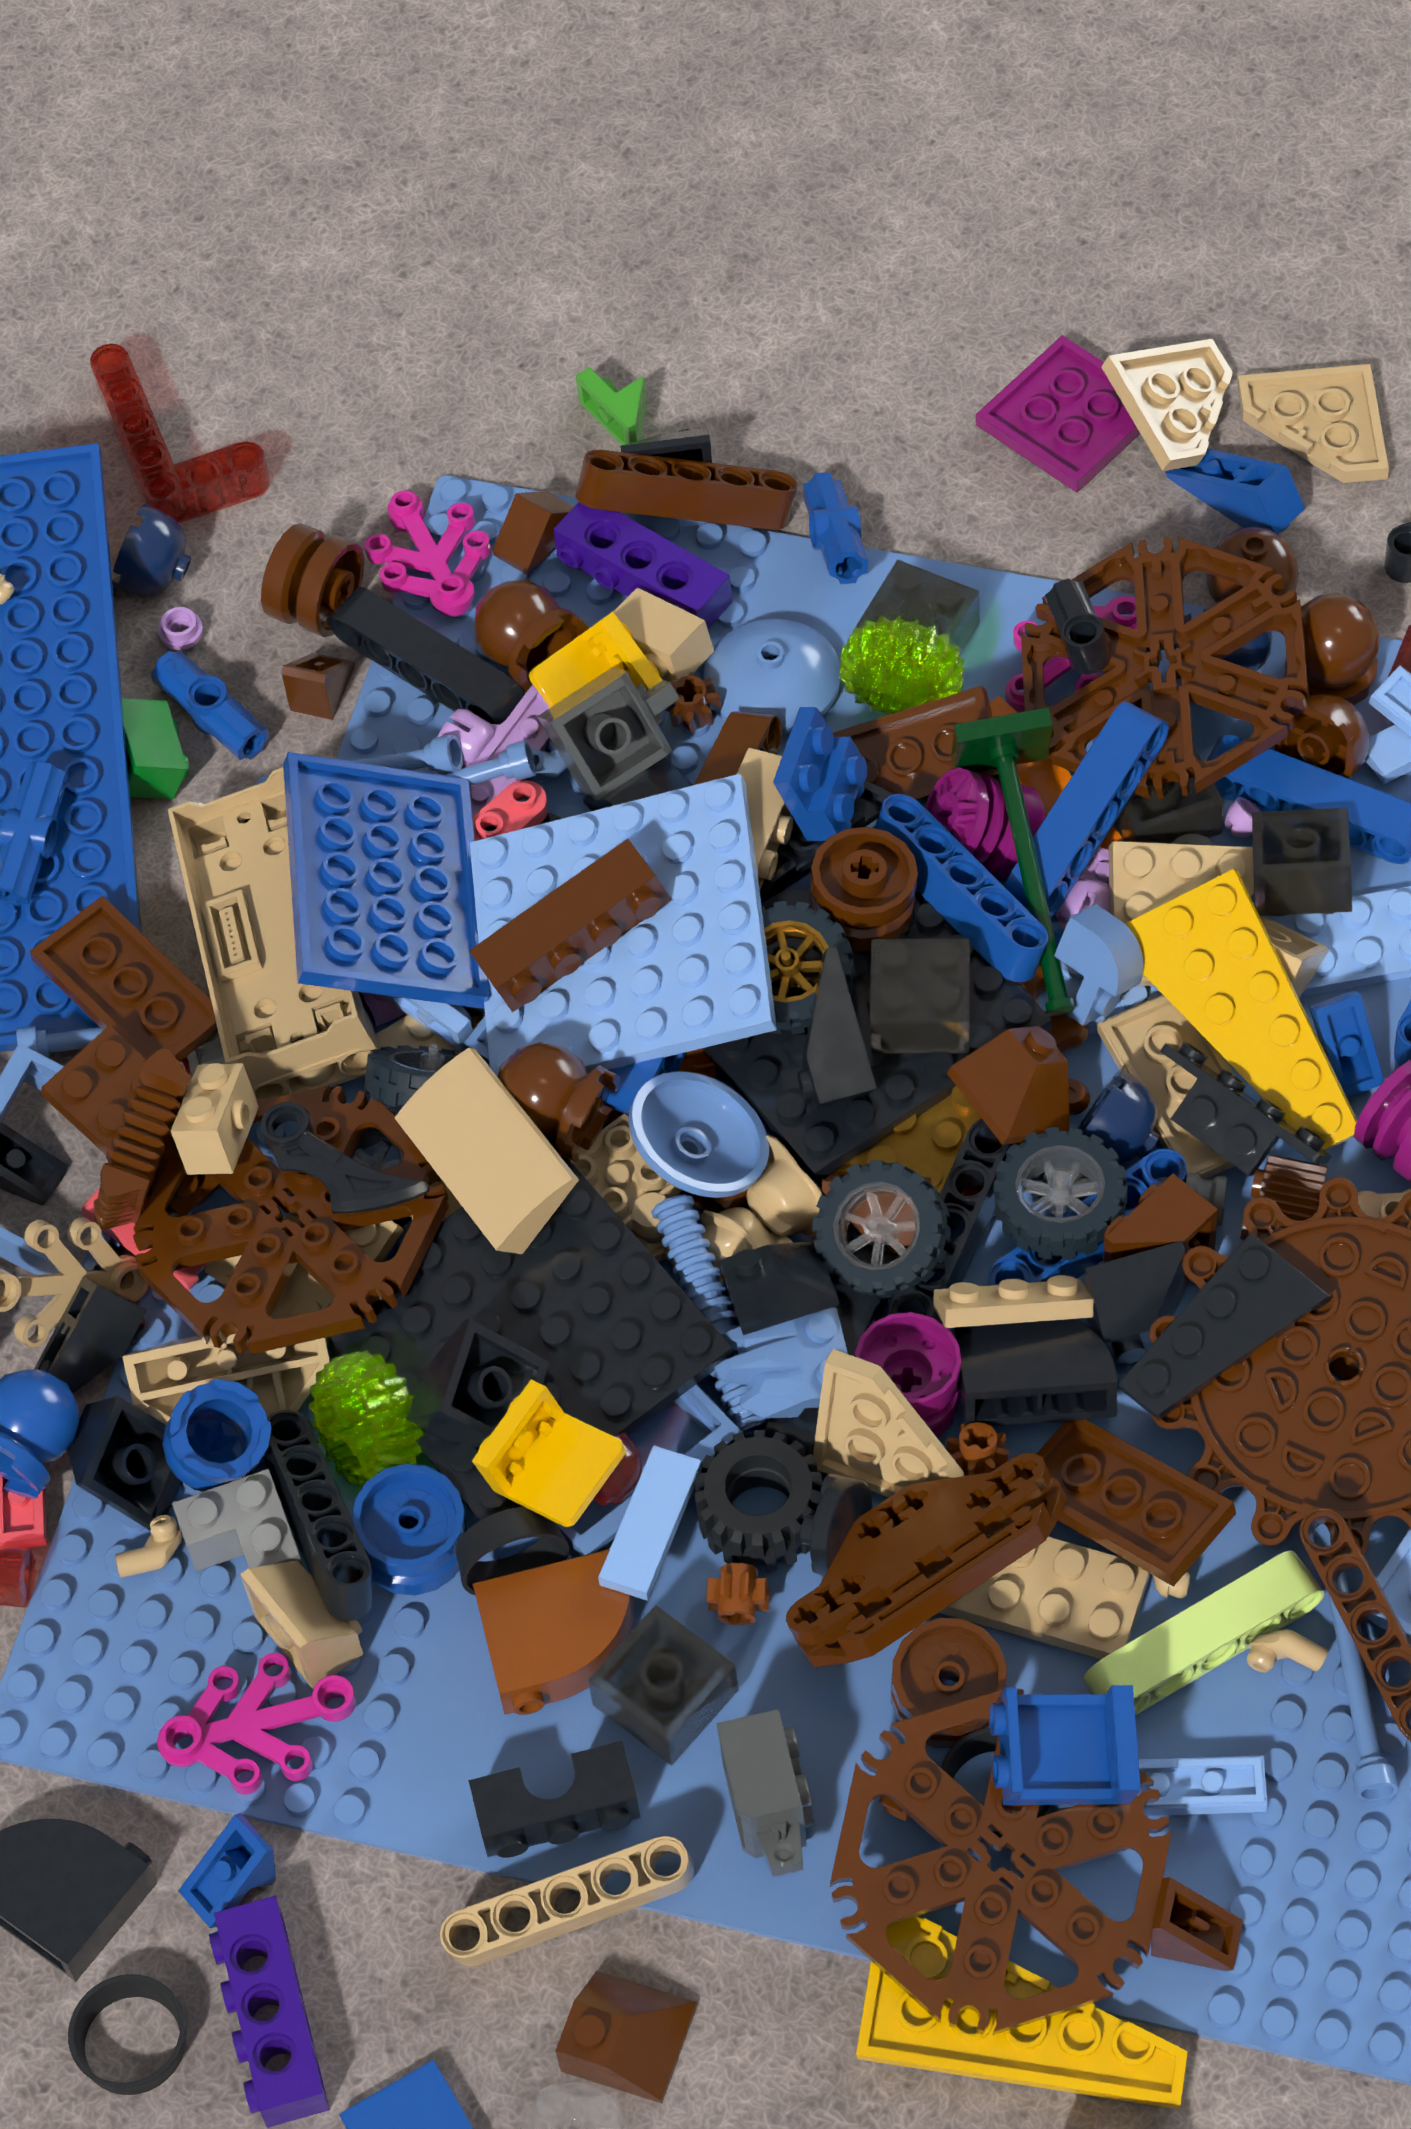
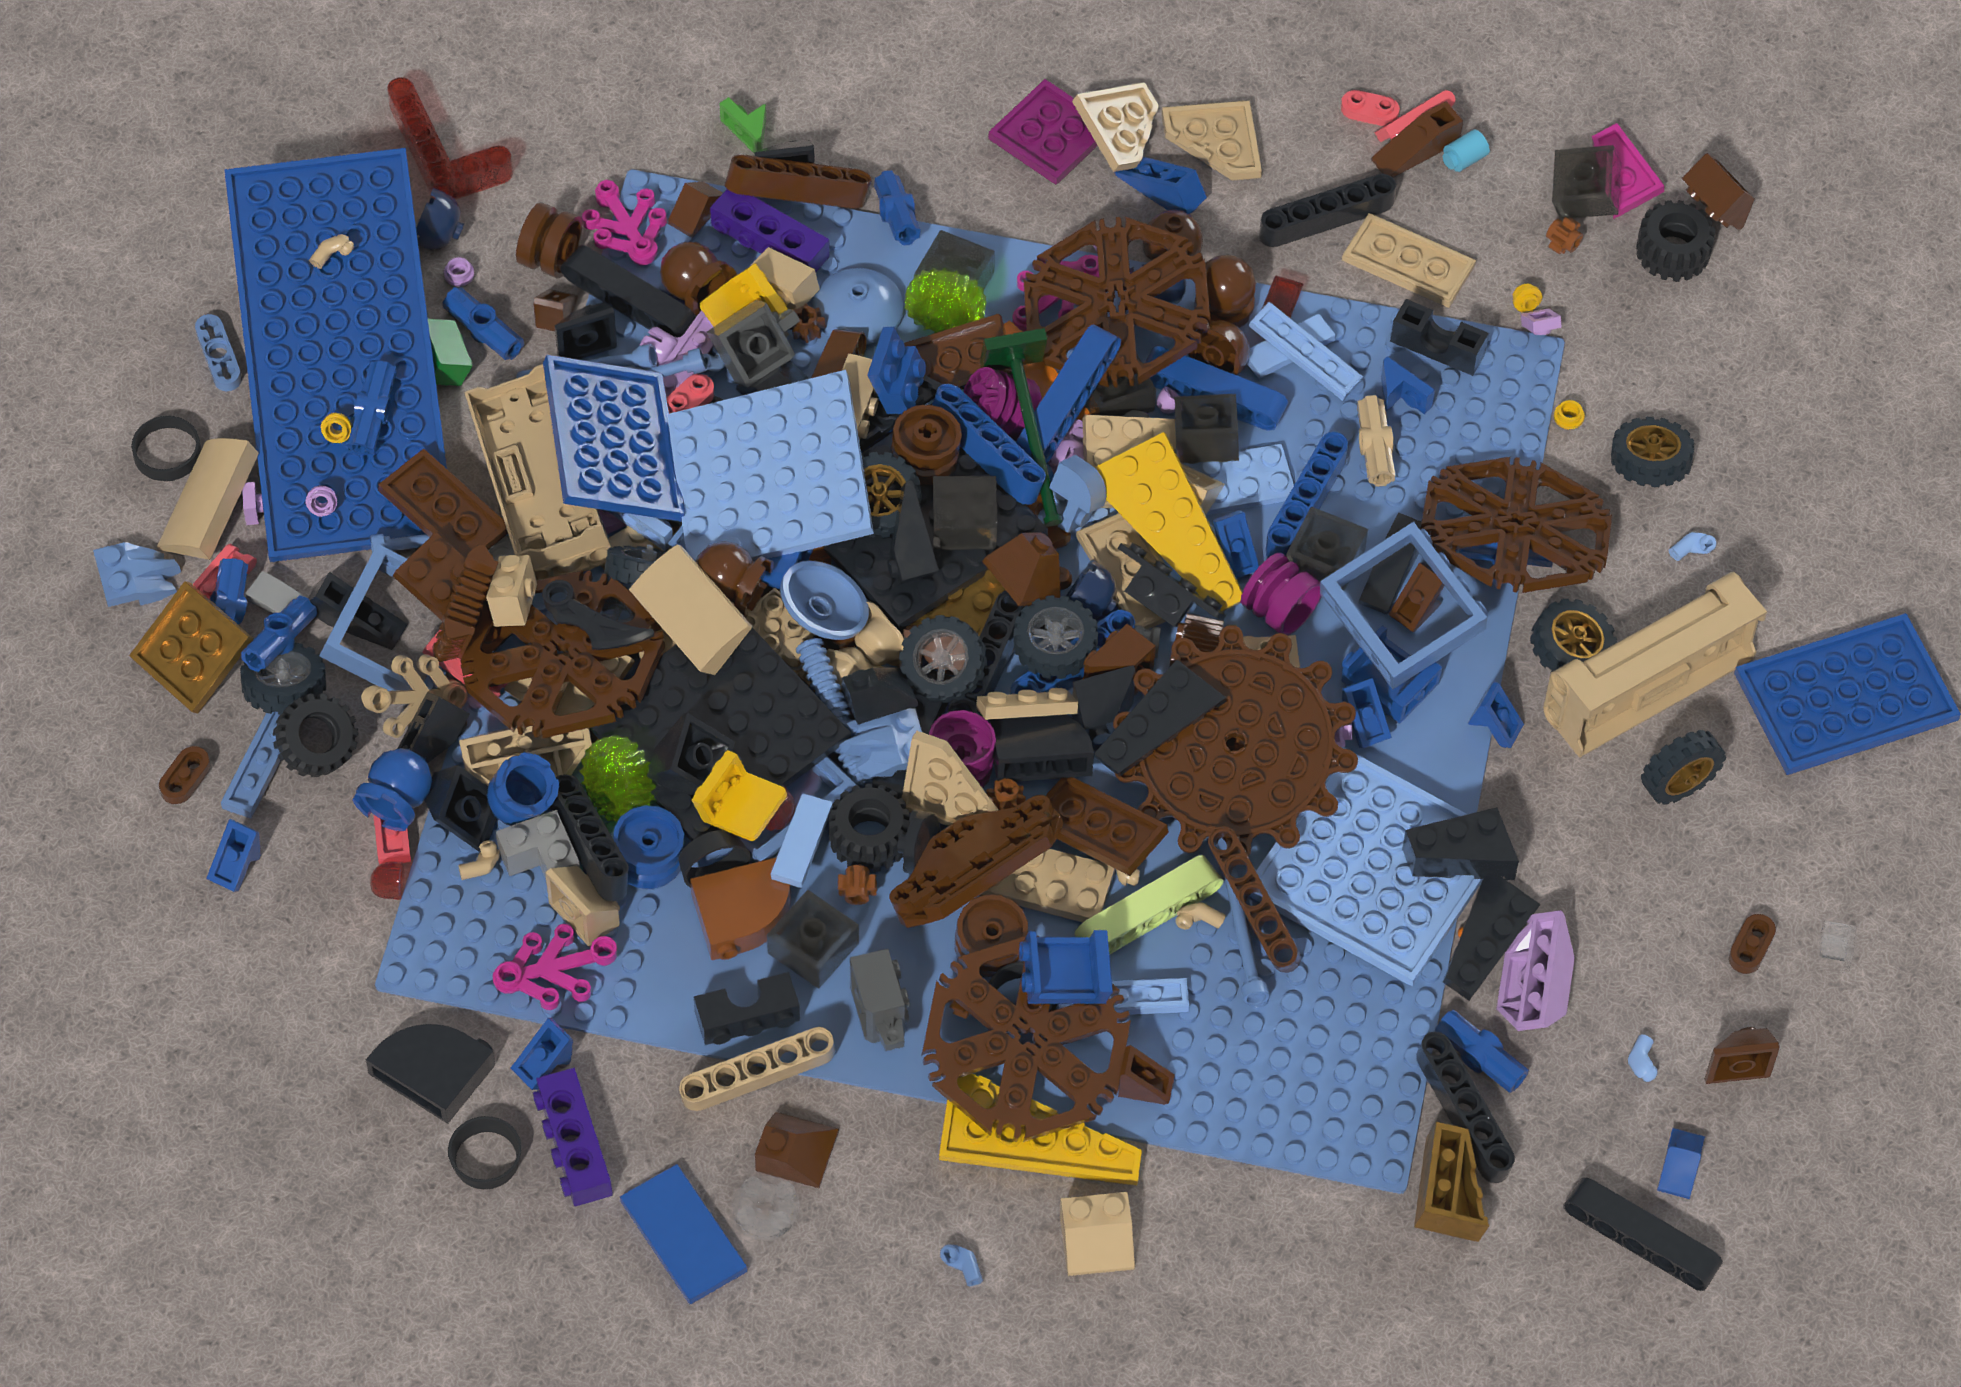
camera: 10 degrees left, 0 degrees up
(357, 718) = (586, 332): none -> black slope
(570, 925) = (738, 467): reddish brown brick -> none
(1078, 626) = (1061, 275): black piece -> none

